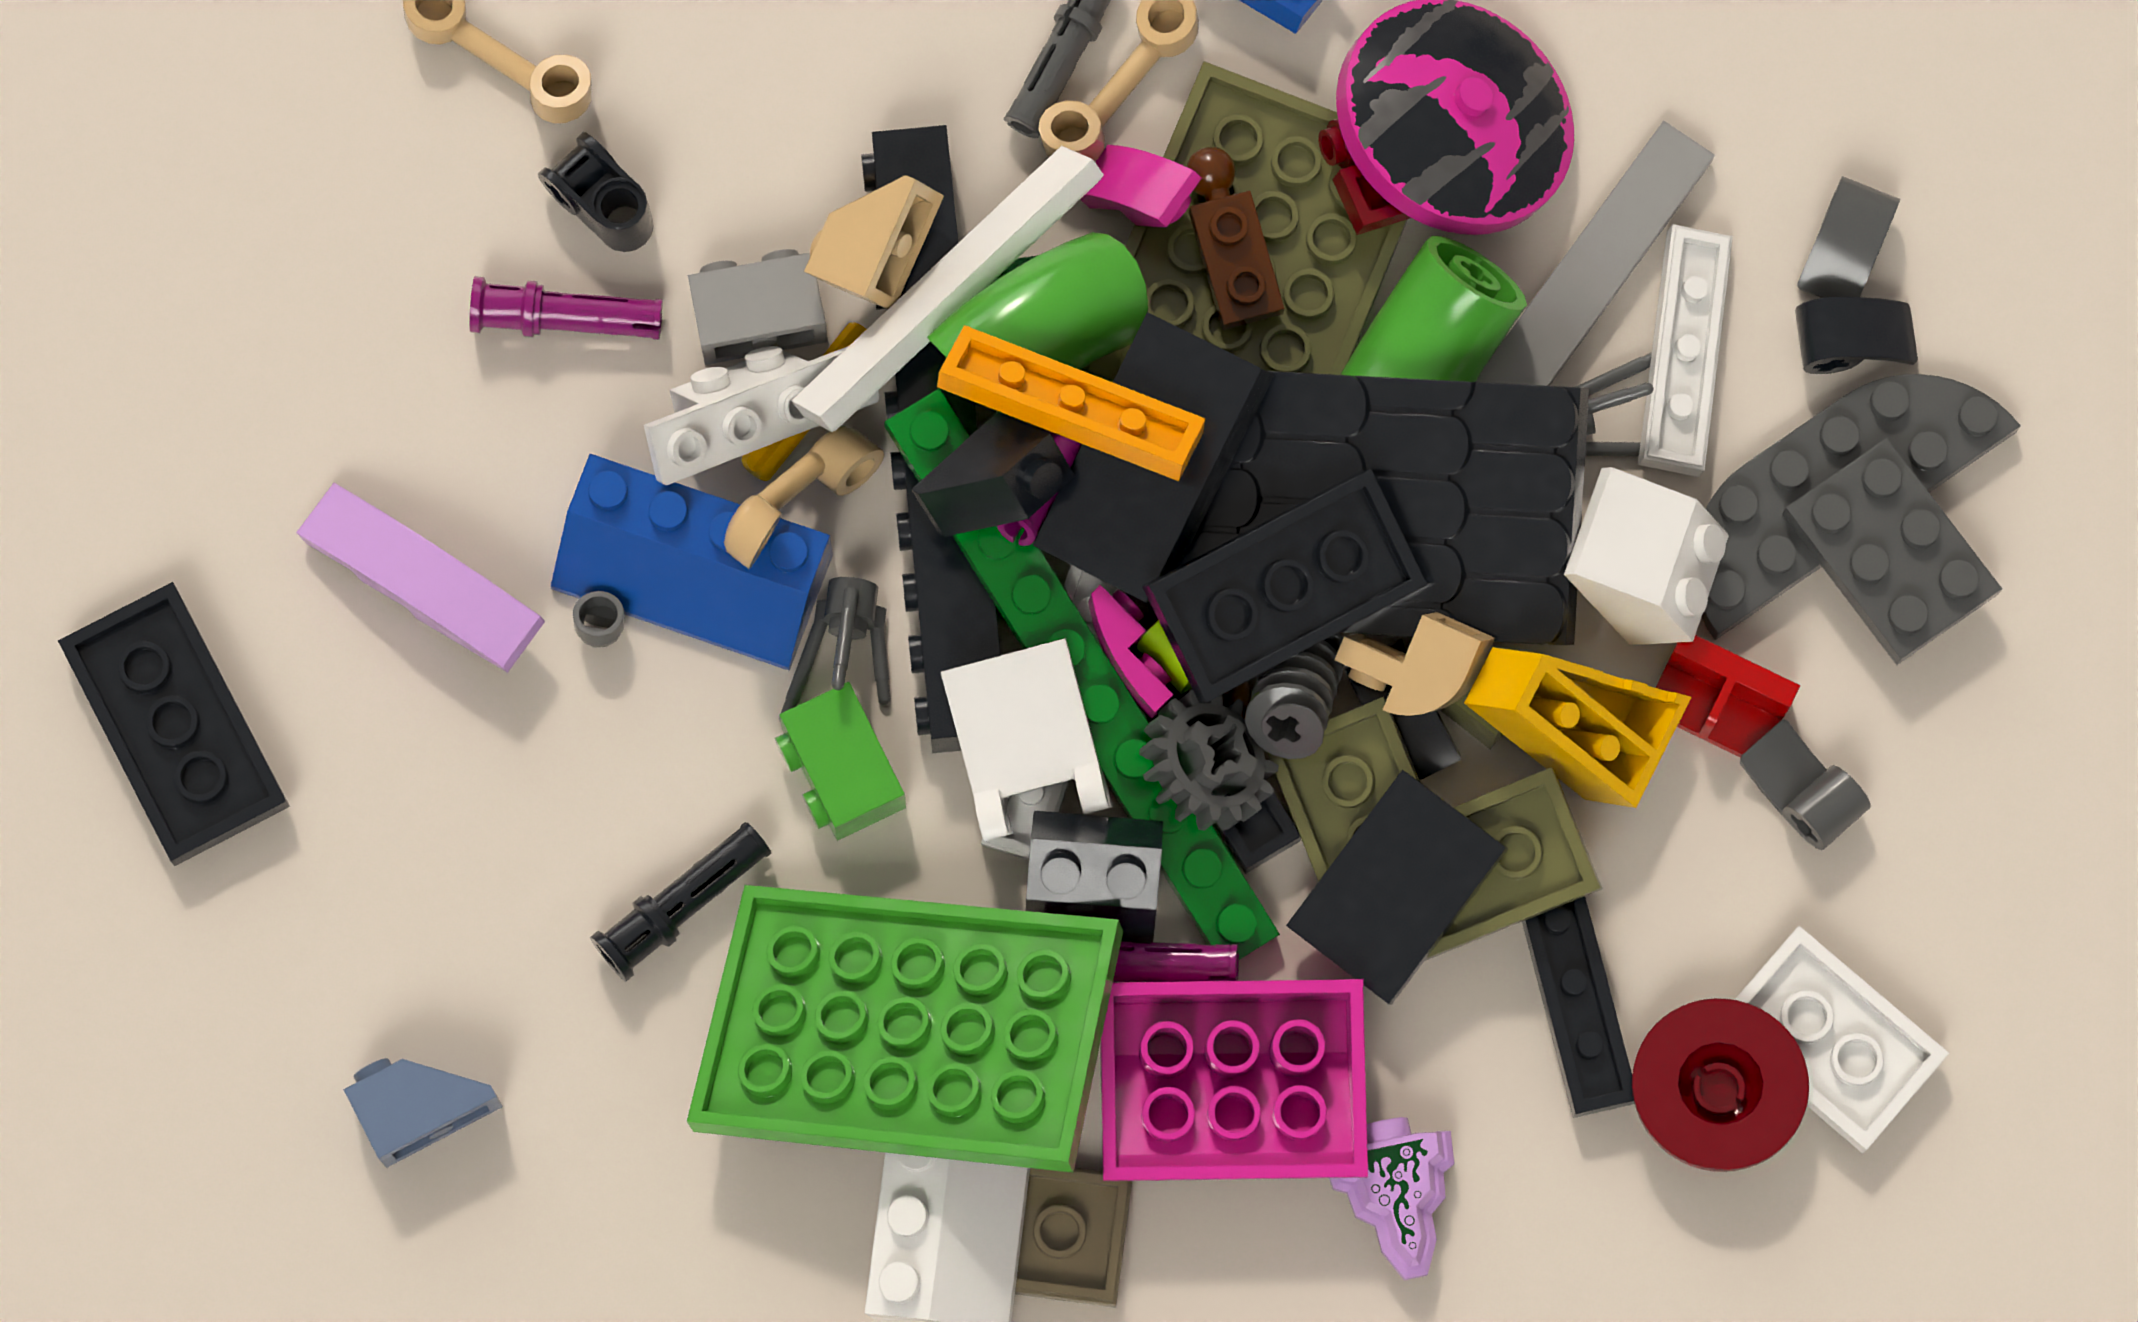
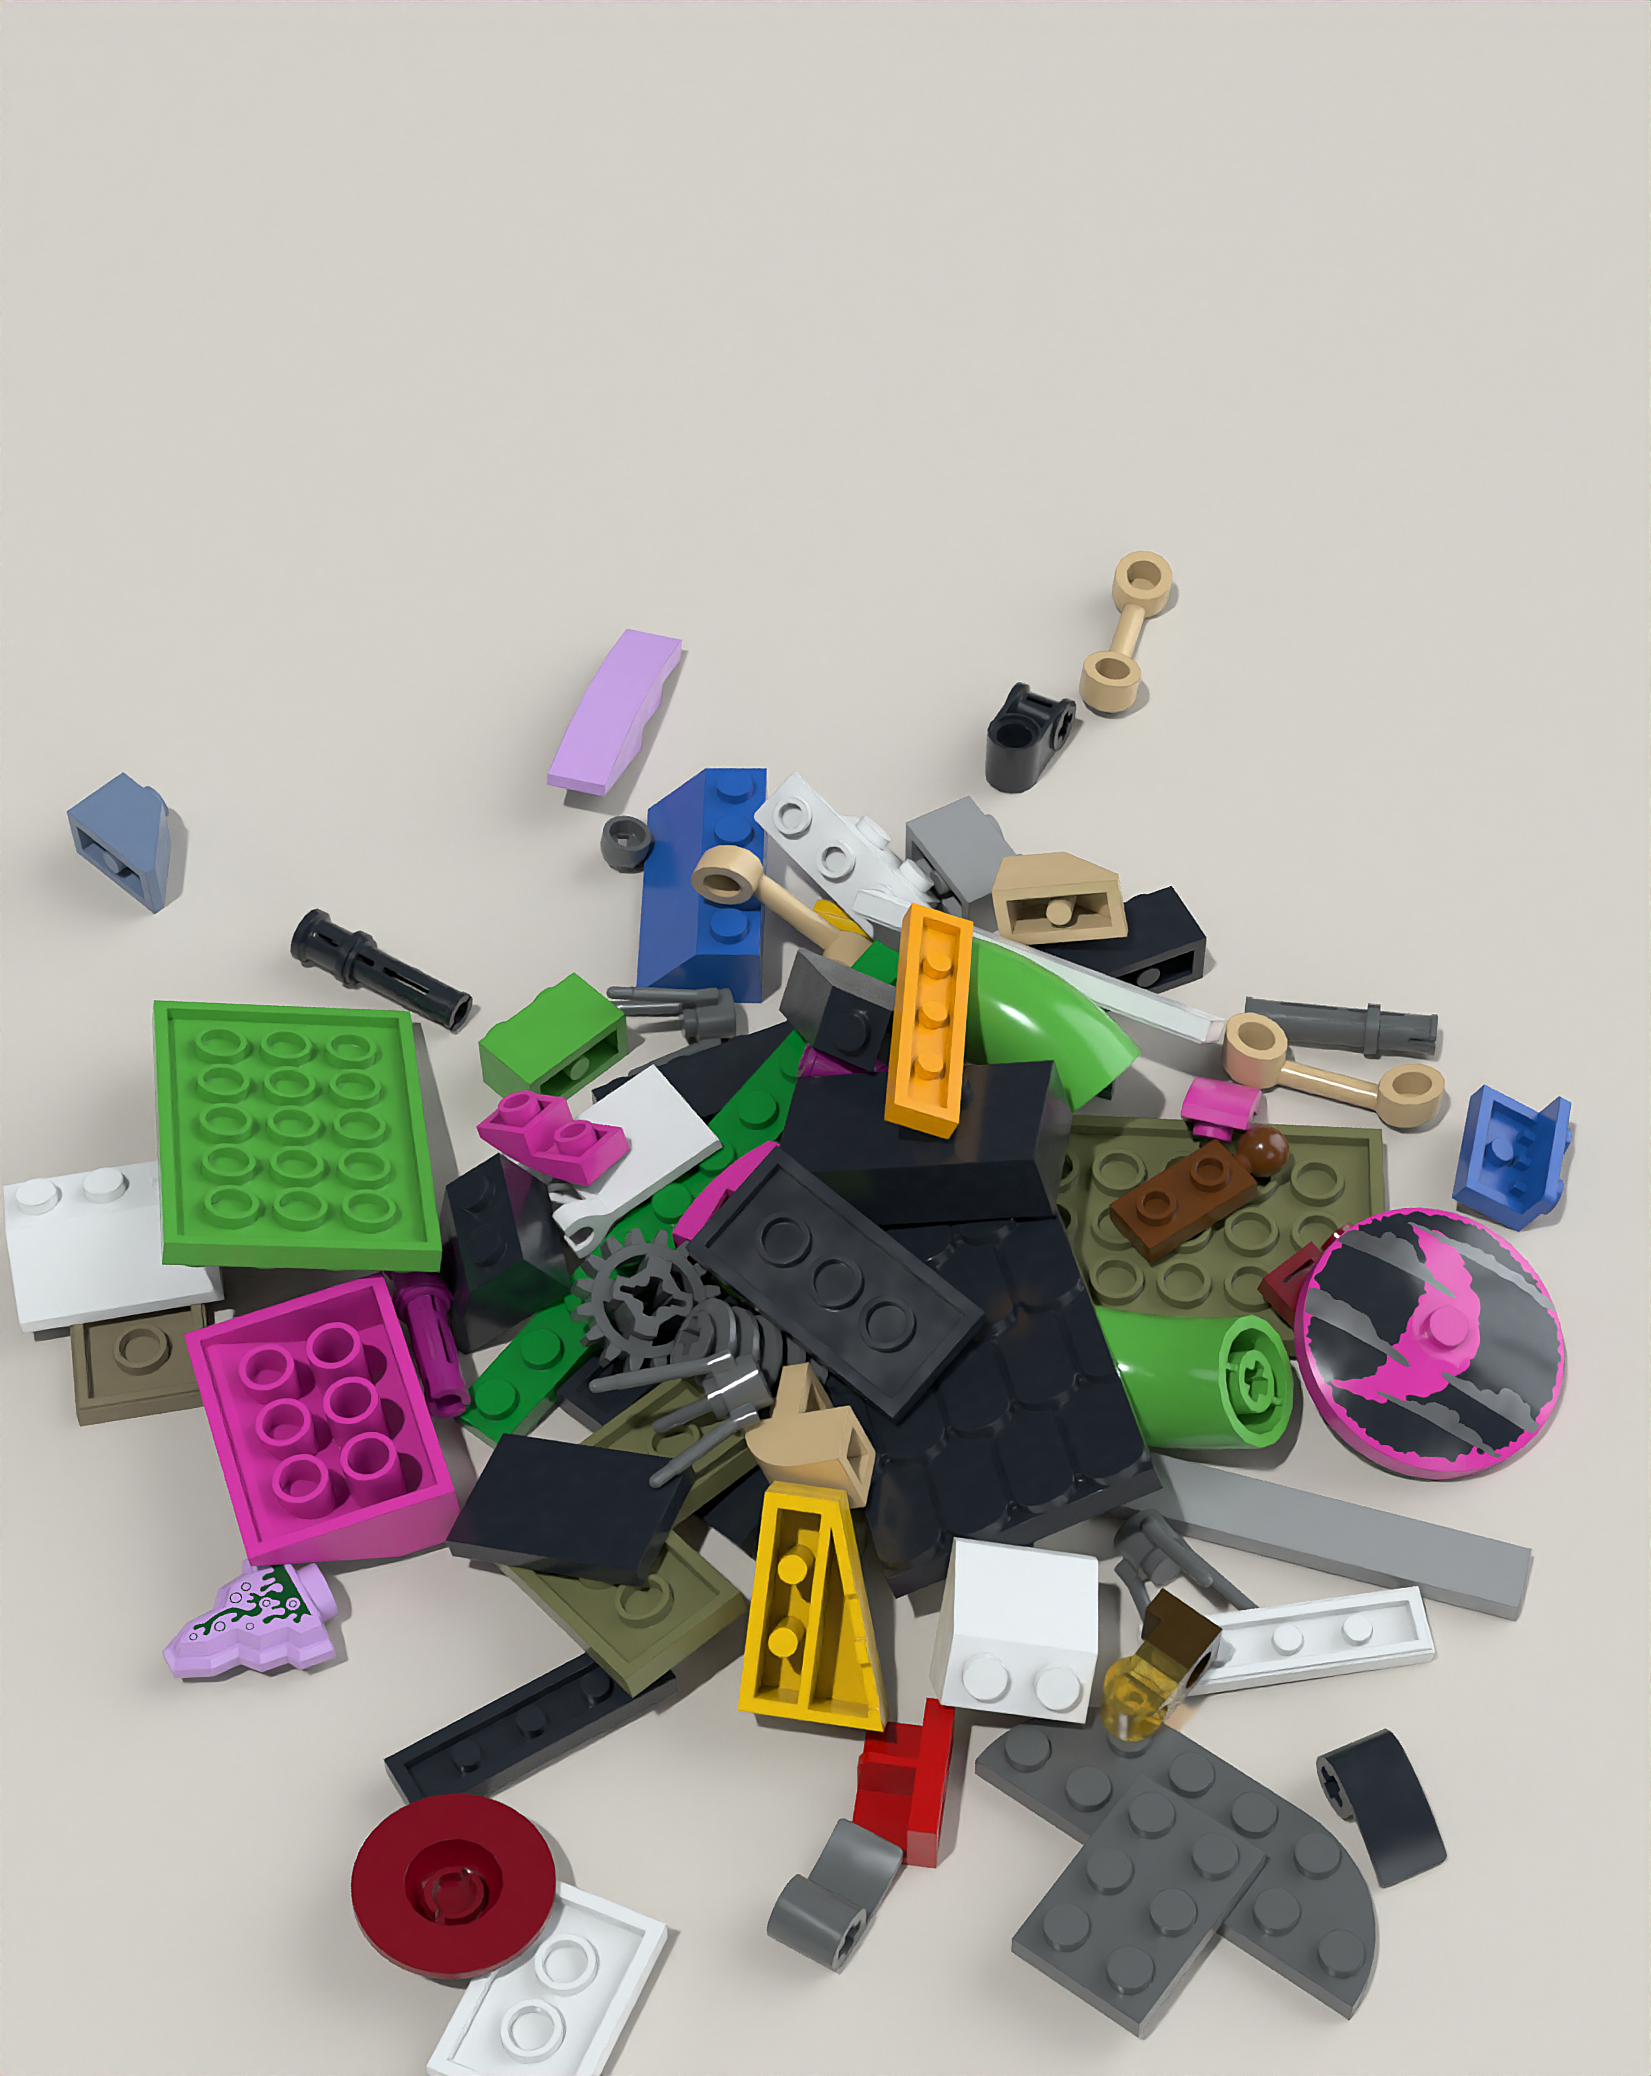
camera: 75 degrees right, 25 degrees down
(173, 724) = (425, 600): black plate -> none
(533, 309) = (898, 723): magenta pin -> none
(999, 790) = (547, 1139): none -> dark pink slope
(1358, 710) = (734, 1390): none -> dark grey plant
(1710, 456) = (1152, 1683): none -> leg
(1848, 240) = (1501, 1757): dark grey panel -> none

